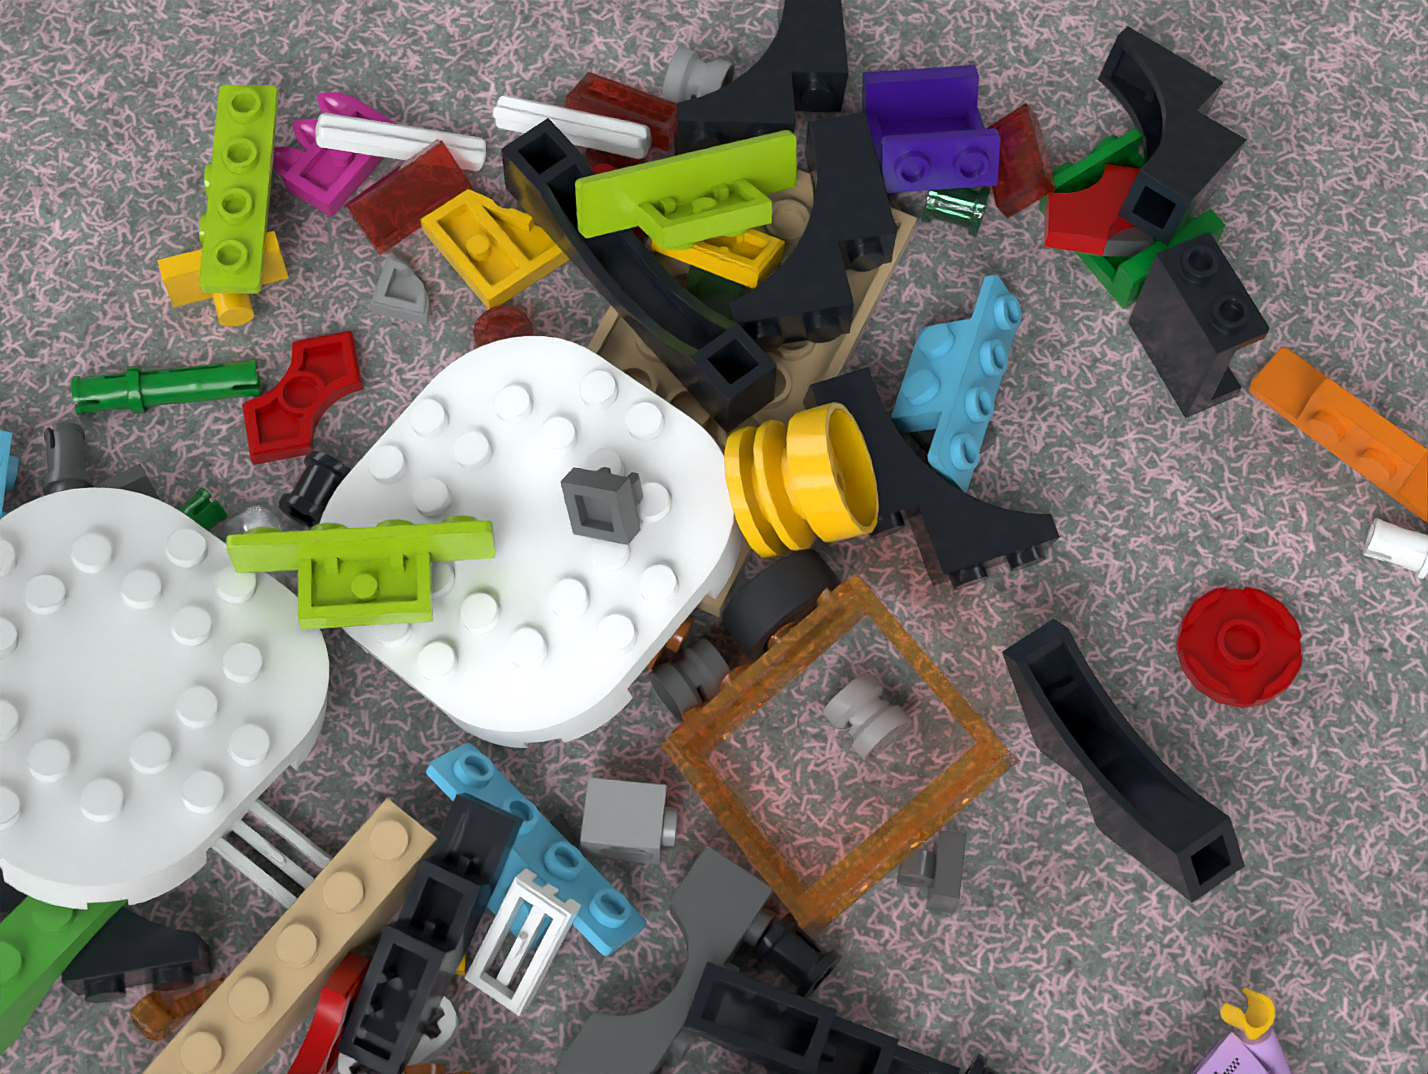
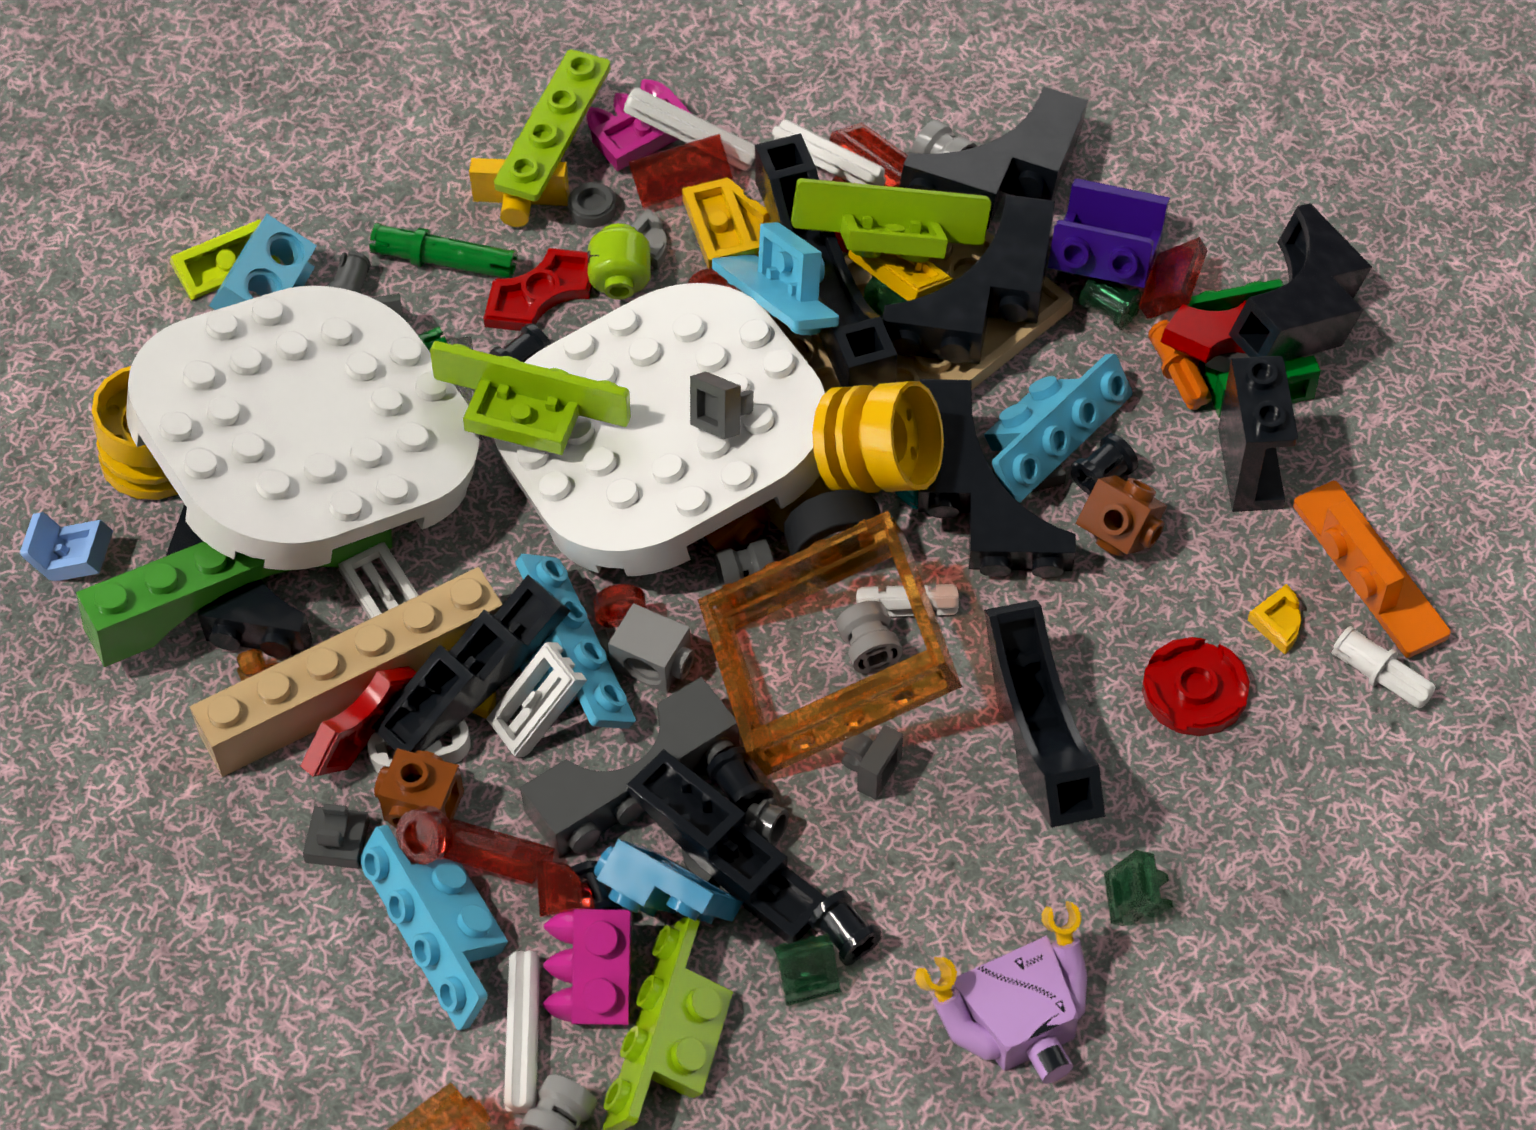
camera: 25 degrees right, 10 degrees down
(318, 269) = (592, 204): none -> dark grey tile
(385, 335) = (620, 260): none -> lime head
(565, 777) = (615, 601): none -> clear red tile
(598, 306) = (782, 279): none -> medium azure bracket
(847, 994) = (768, 820): none -> dark grey plate
(880, 655) = (943, 599): none -> white axle
(1034, 412) = (1110, 459): none -> black bush
(1065, 265) = (1181, 369): none -> orange axle
(1086, 469) = (1123, 515): none -> dark orange brick
(1287, 926) = (1135, 889): none -> clear green tile
(1292, 532) = (1278, 618): none -> yellow tile

